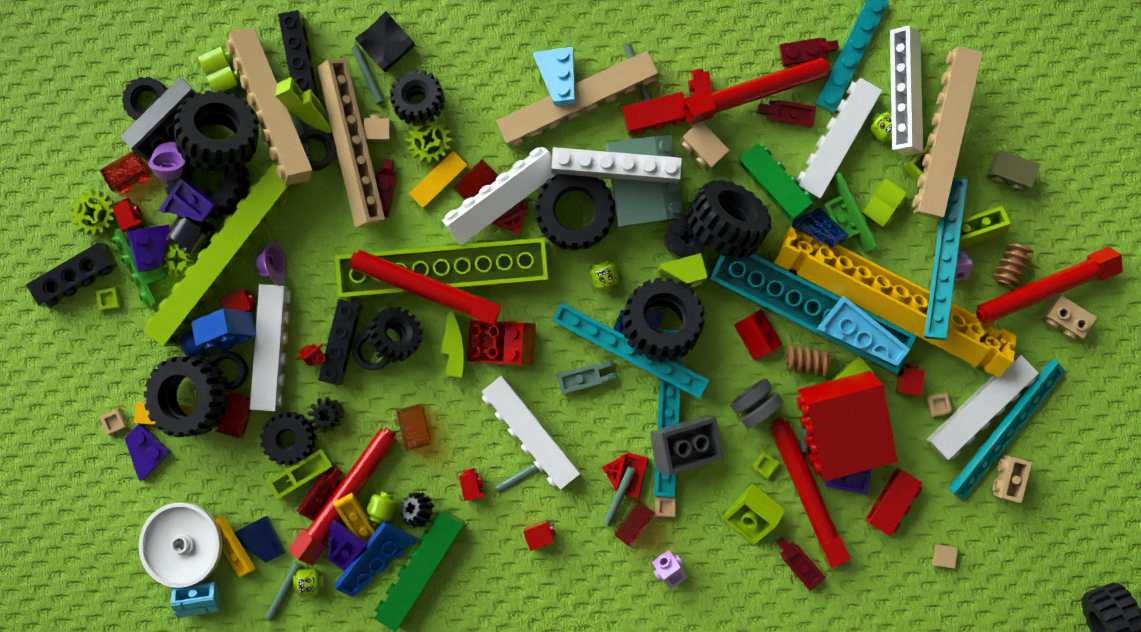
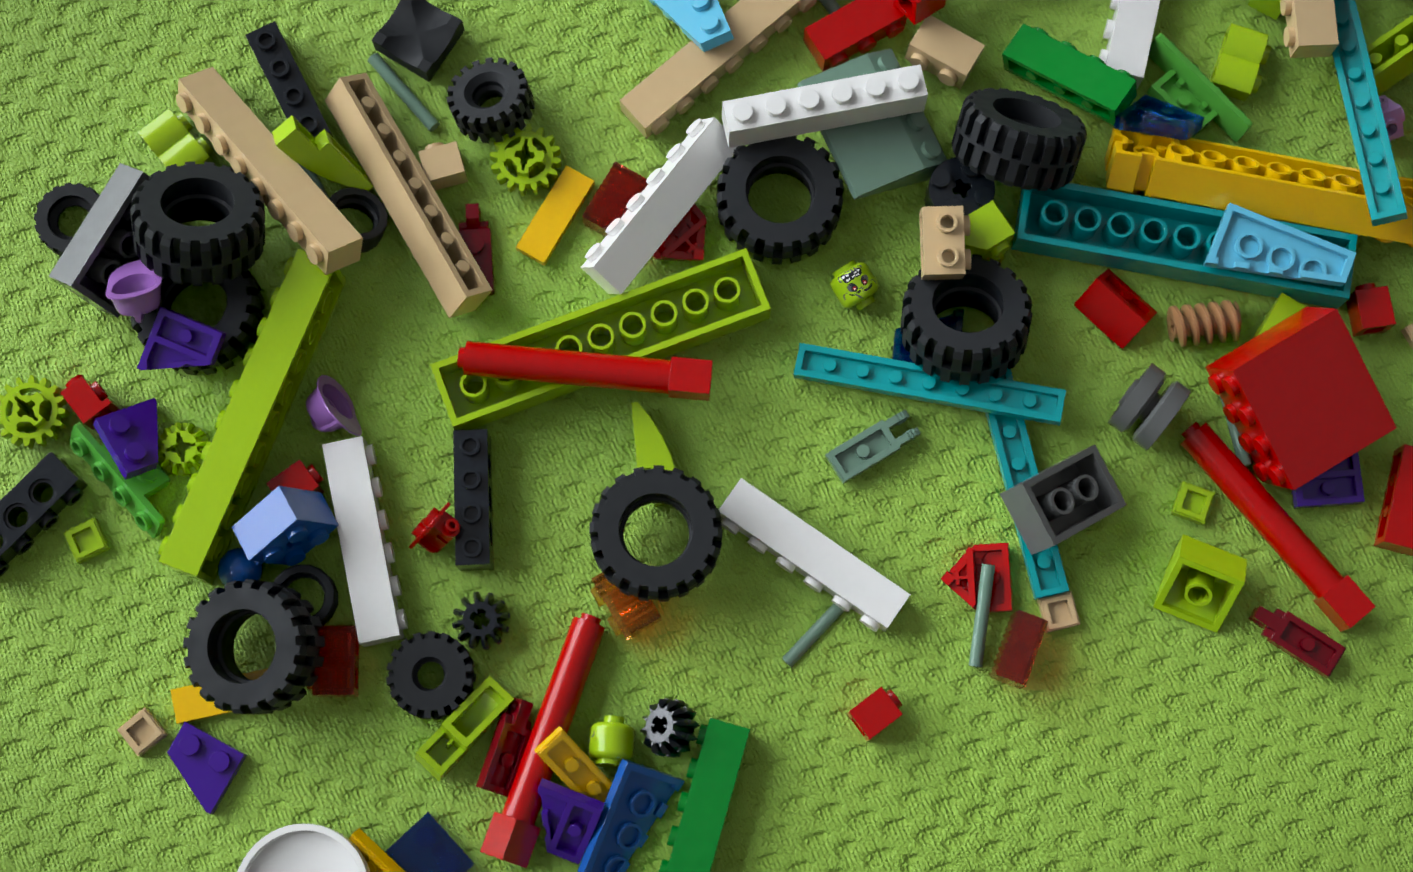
camera: 15 degrees left, 10 degrees down
(126, 172) = (68, 336): clear red brick -> none
(191, 234) = (193, 395): black brick -> none
(356, 352) = (527, 474): black tyre -> none
(404, 325) = (566, 446): black tyre -> none
(438, 427) = (656, 487): none -> black tyre
(471, 484) = (744, 664): red brick -> none
(501, 343) = (725, 430): red slope -> none
(661, 273) = (944, 242): none -> tan brick
(669, 569) = (1098, 705): lavender brick -> none

